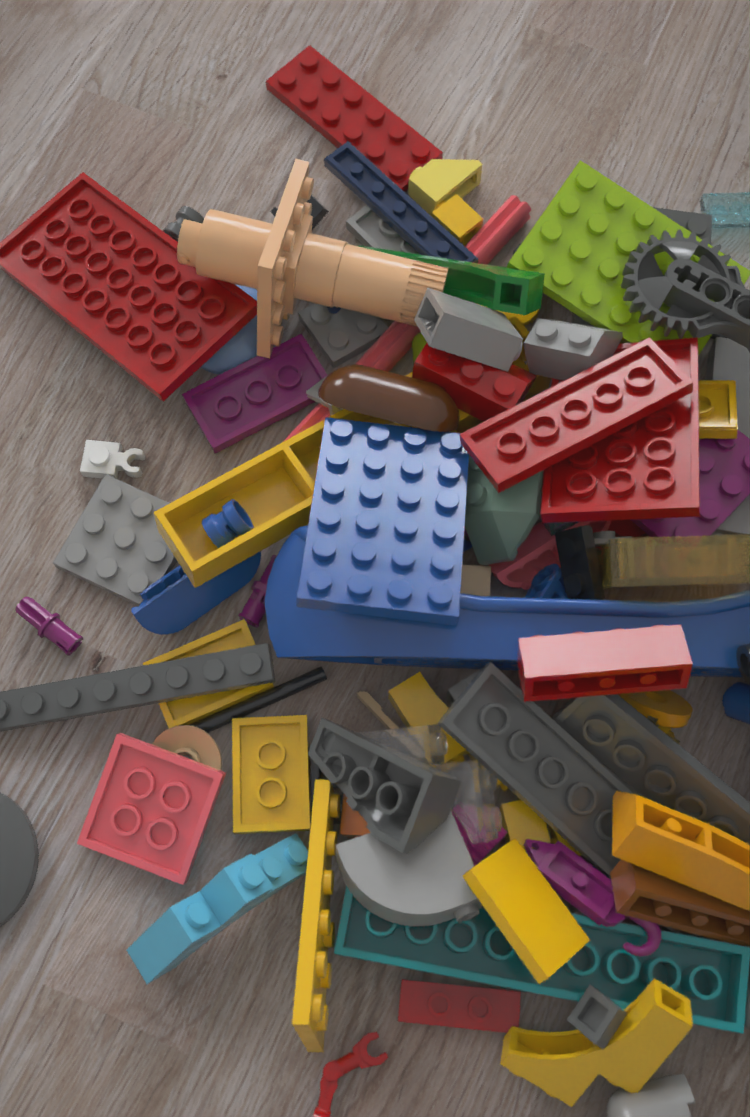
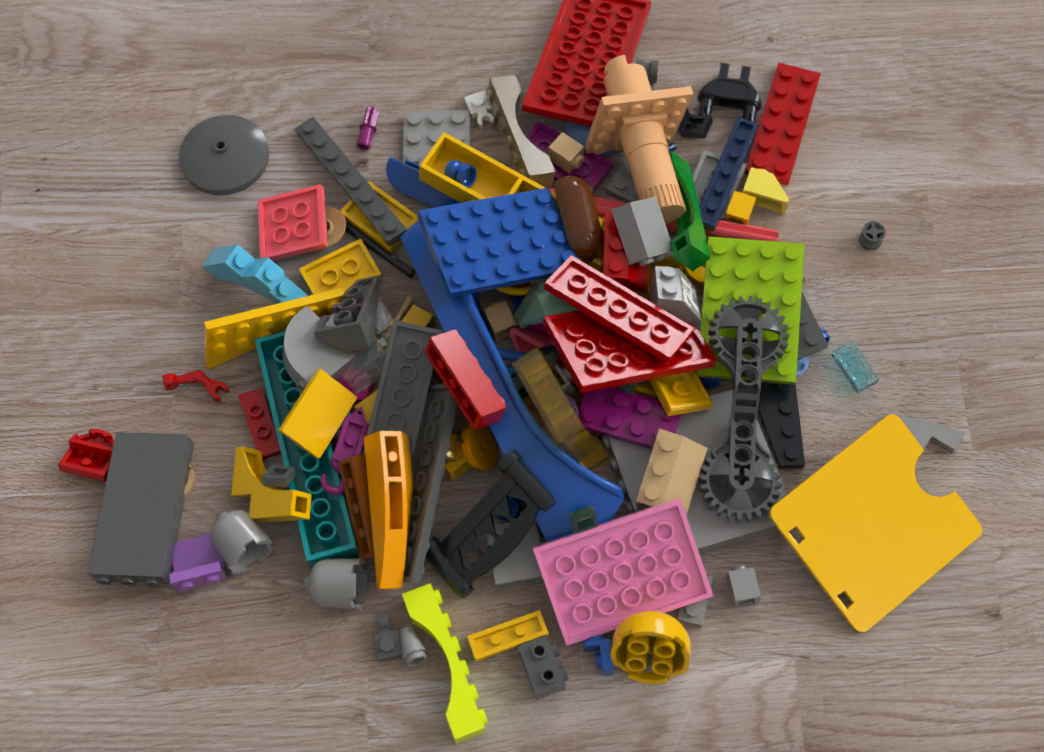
camera: 65 degrees right, 5 degrees down
(251, 429) = (530, 161): none -> arch
(262, 378) = (566, 153): none -> tan brick
(278, 149) = (730, 94): none -> black connector
(566, 96) = (877, 232): none -> dark grey wheel

